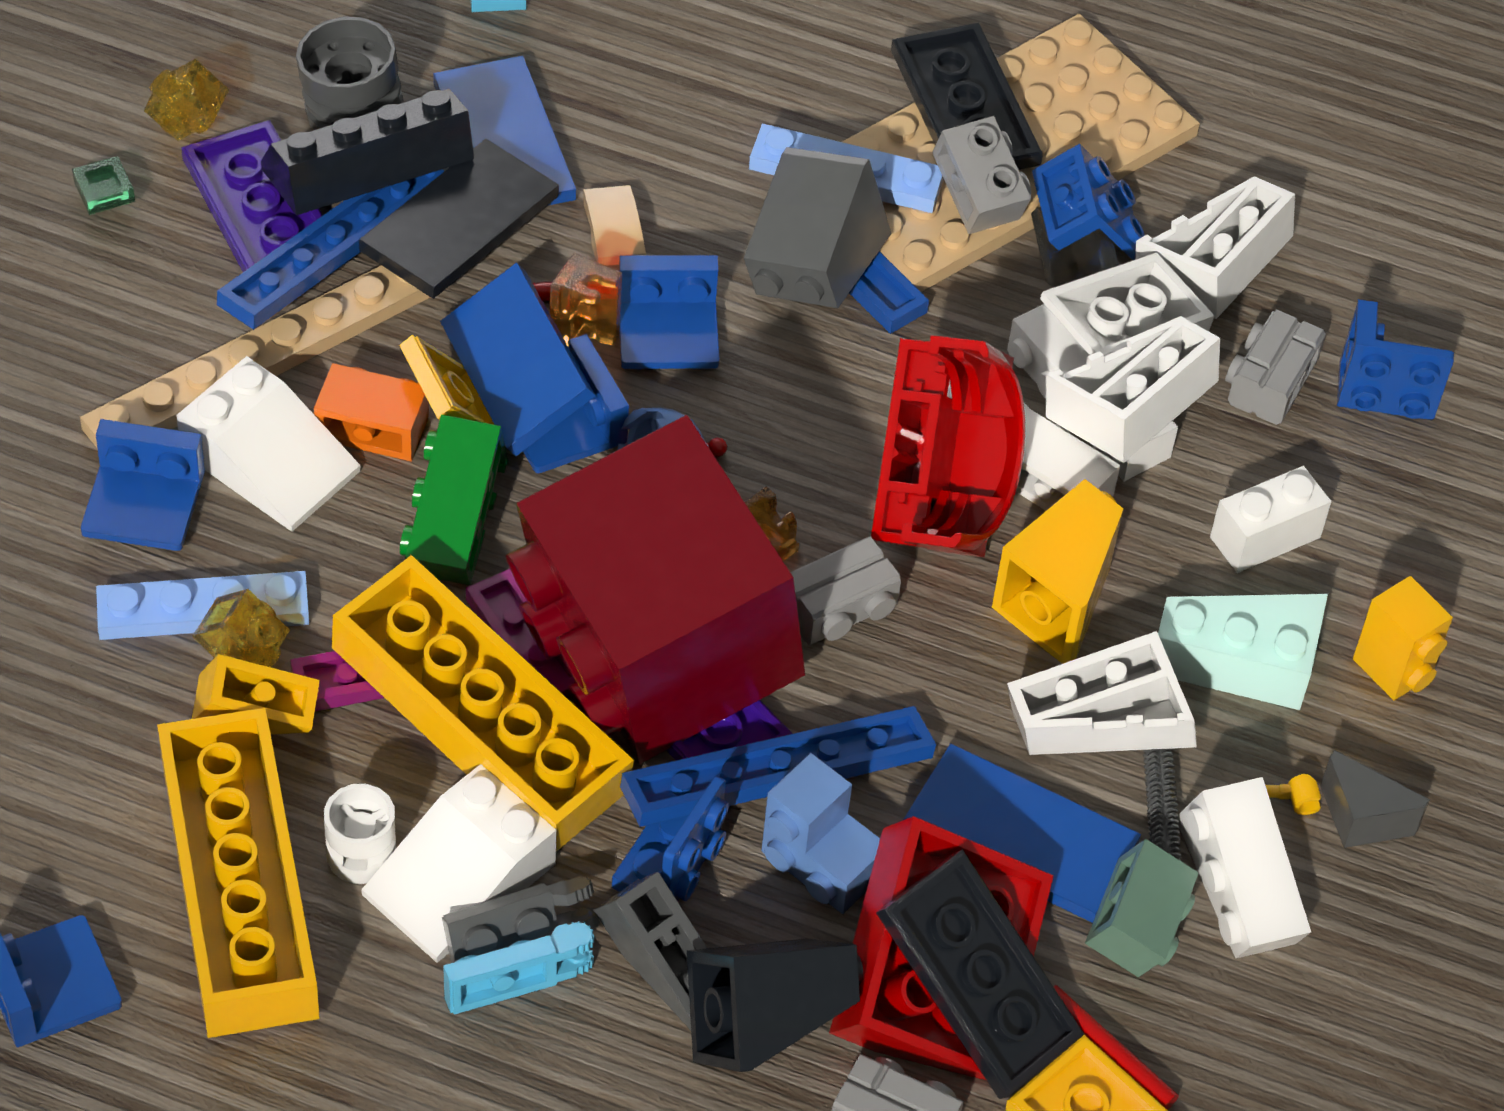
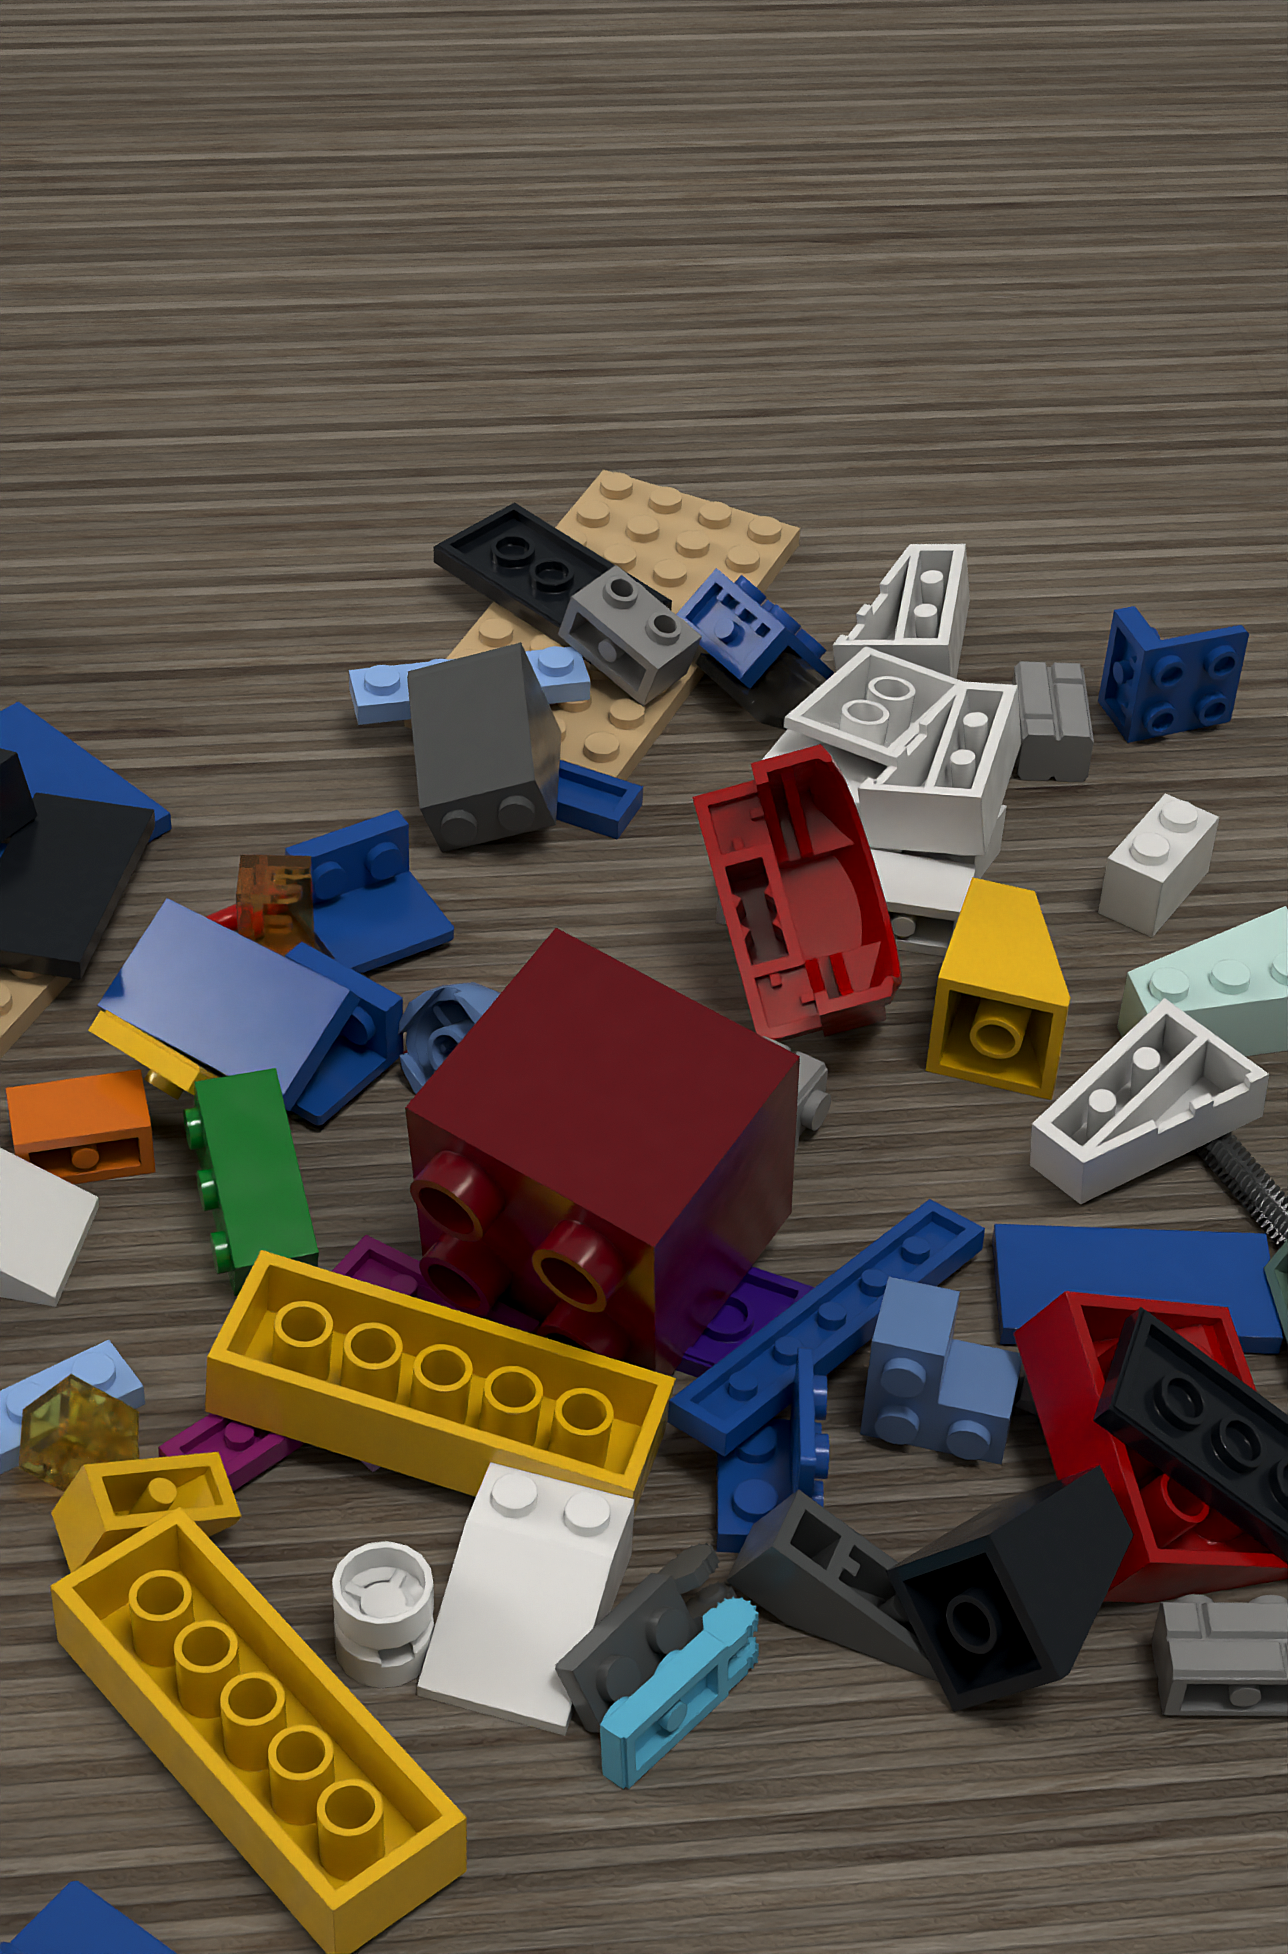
camera: 25 degrees left, 10 degrees down
(613, 223) = (234, 828): tan slope -> none

